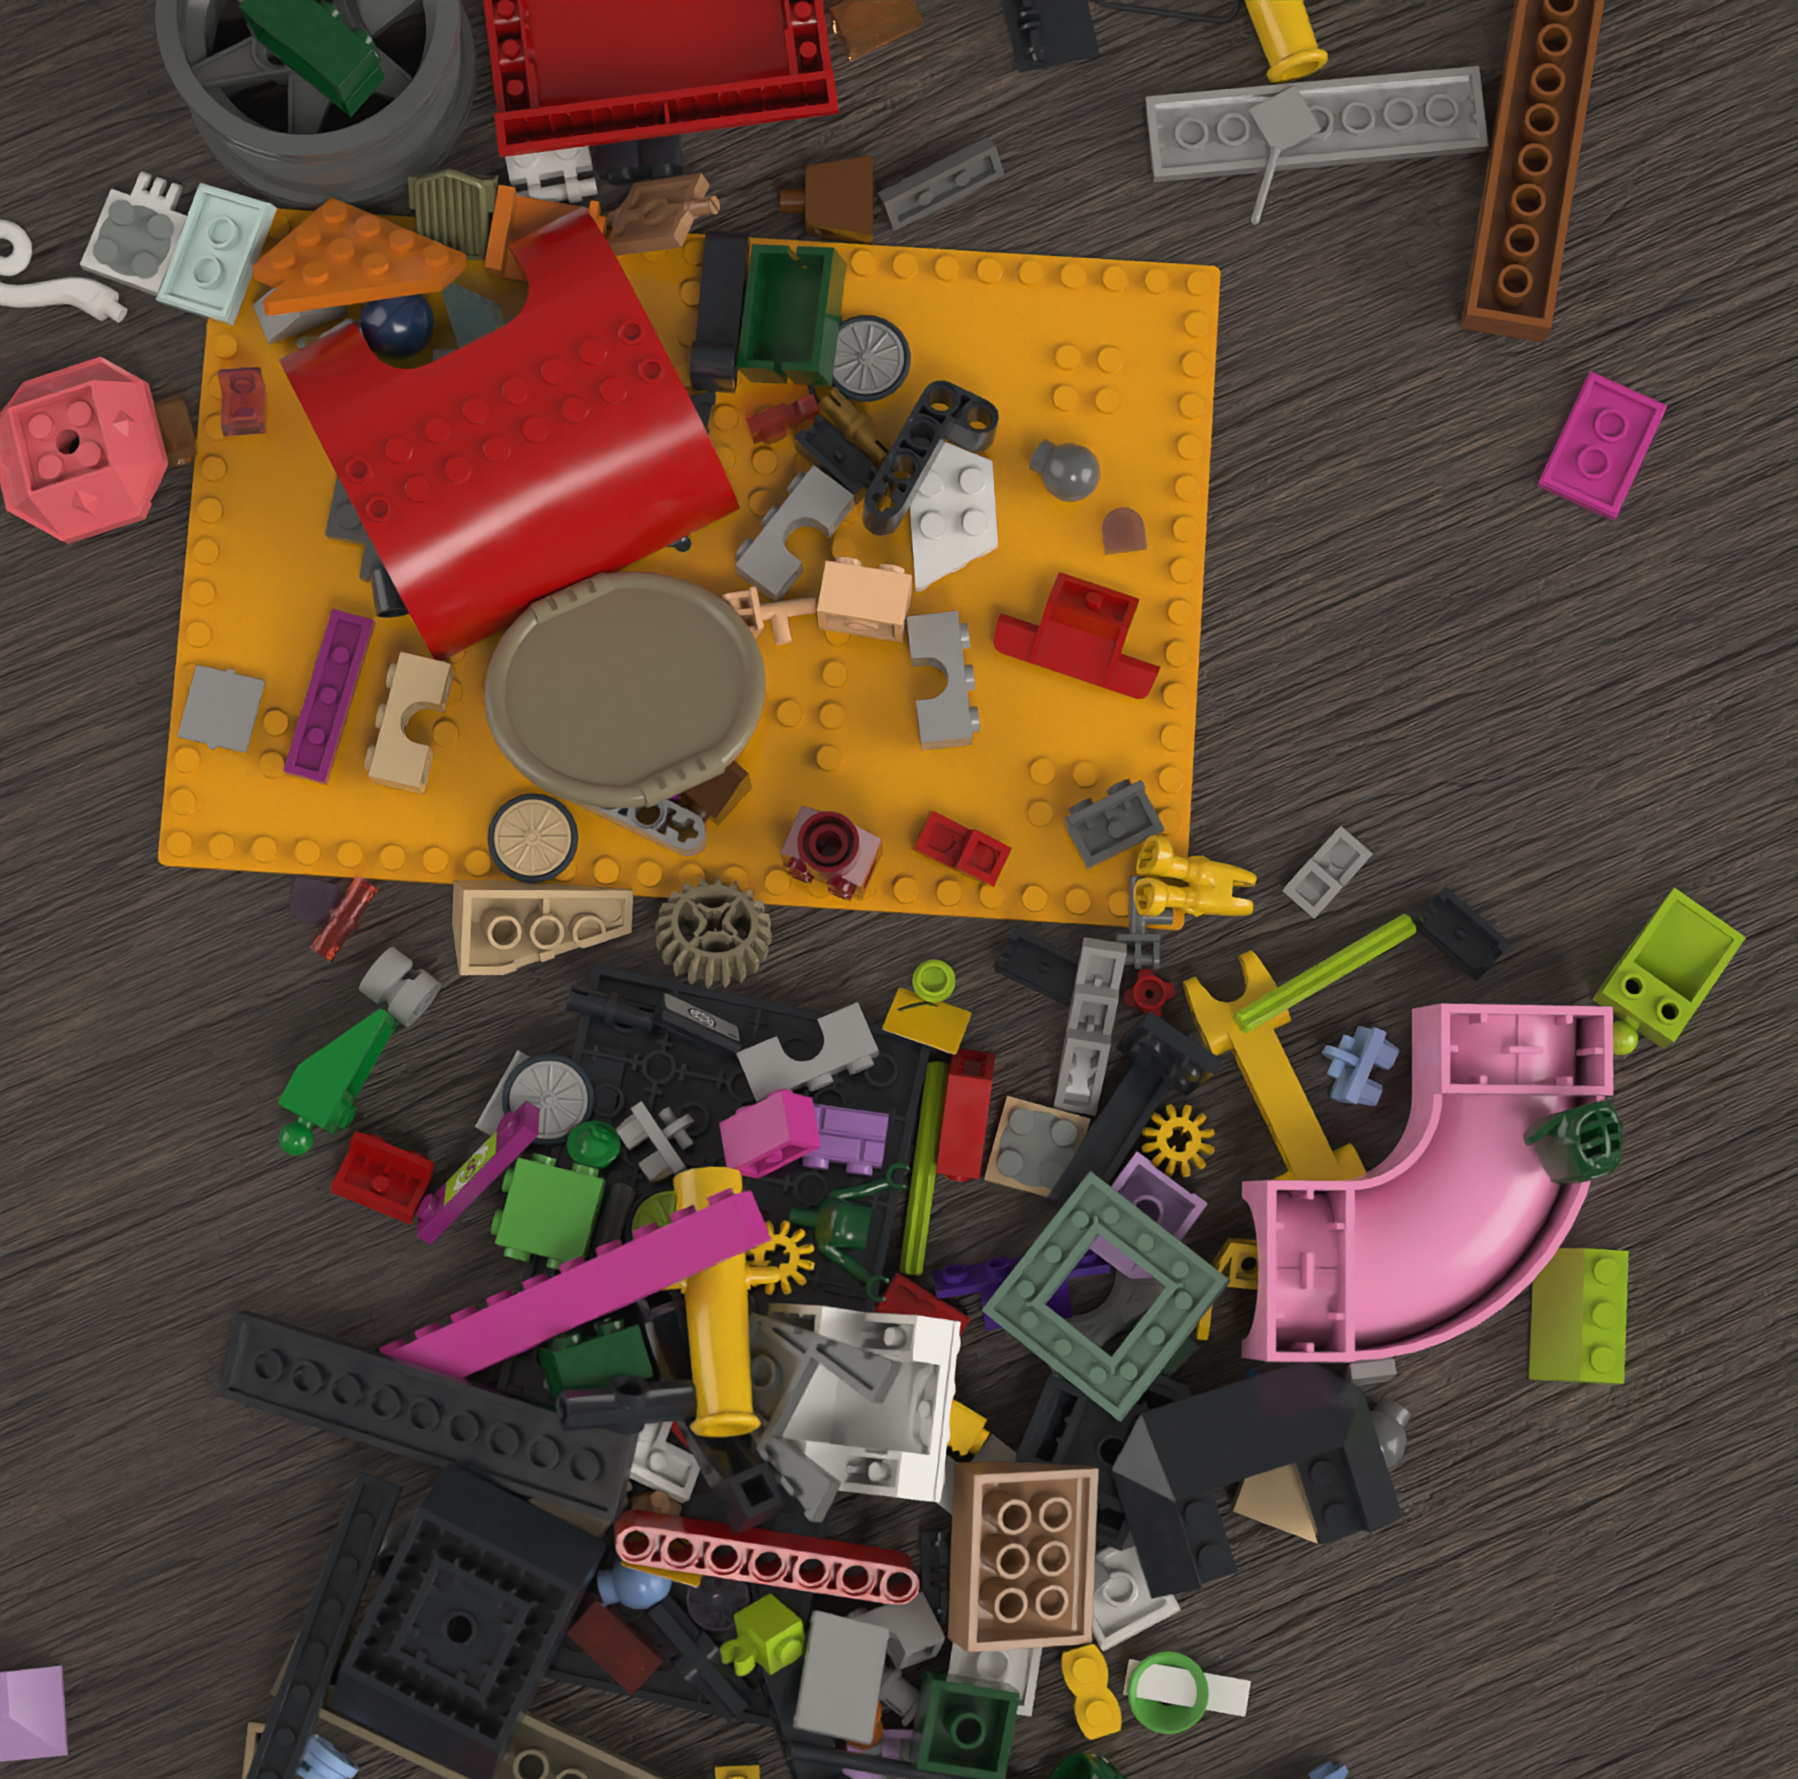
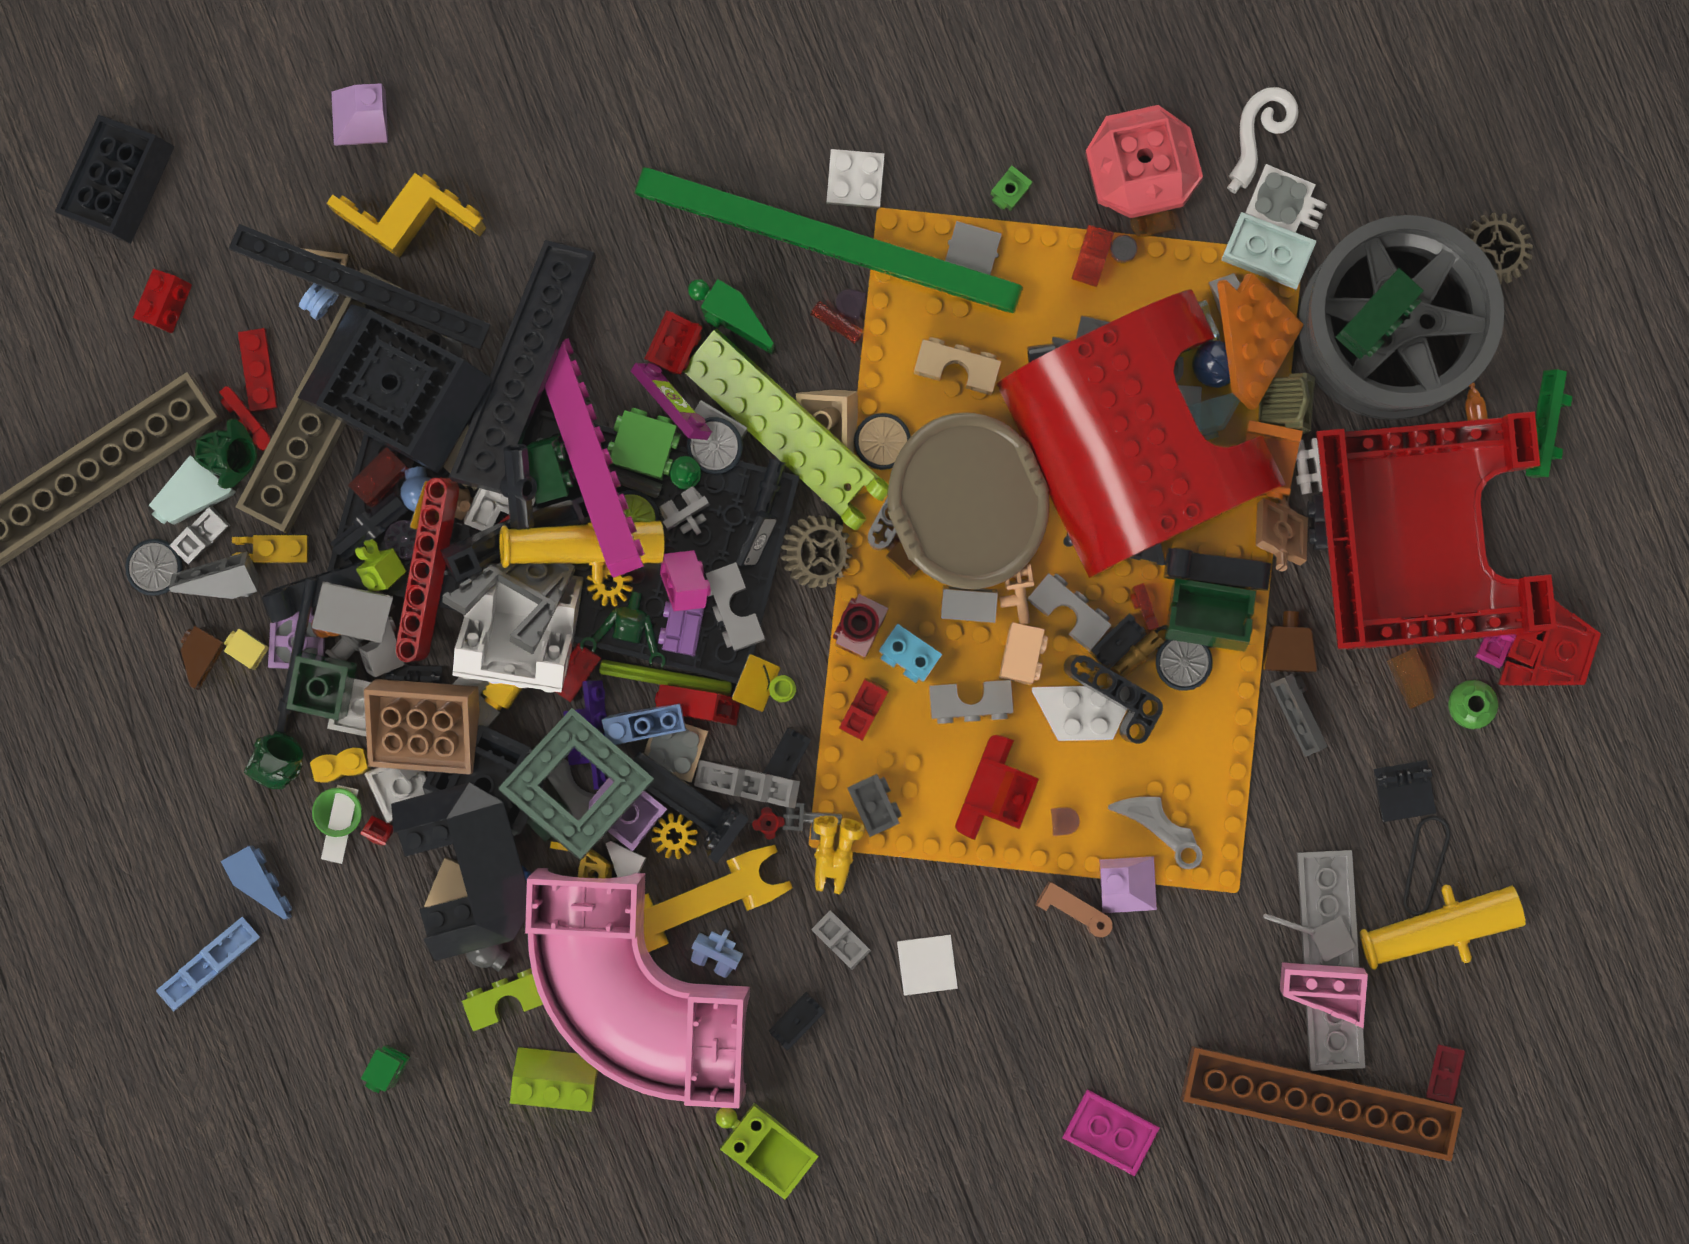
camera: 90 degrees right, 5 degrees up
(109, 645) = (1010, 200): none -> bright green brick
(111, 900) = (855, 178): none -> white plate
(179, 1622) = (407, 214): none -> yellow bracket
(209, 942) = (828, 240): none -> green beam
(217, 474) = (1123, 249): none -> tile
(229, 520) = (1092, 255): none -> clear red slope
(243, 401) = (1168, 266): clear pink bracket -> none
(329, 697) = (976, 316): magenta plate -> none
(399, 986) = (791, 356): light grey wheel -> none
(513, 994) = (783, 426): none -> lime hinge
(789, 689) = (969, 604): none -> light grey hinge
(871, 778) = (909, 653): none -> medium azure brick
(1001, 1194) = (643, 723): none -> medium blue slope
(1066, 470) = (1104, 786): dark grey piece -> none
(1106, 400) = (1150, 814): none -> light grey piece
(1194, 1624) = (377, 831): none -> red slope
(1216, 432) = (1128, 884): none -> lavender slope
(1222, 1217) = (624, 860): none -> white slope
(1276, 479) = (1096, 921): none -> nougat leg
(1324, 973) = (774, 933): lime axle -> none
(1358, 737) = (927, 965): none -> white sticker
(1362, 118) = (1327, 988): none -> bright pink wedge
(1370, 1371) = (523, 946): light grey tile -> none
(1465, 1438) = (482, 1006): none -> lime arch
(1578, 1142) = (655, 1080): dark green piece -> none
(1584, 1588) = (384, 1069): none -> green arch

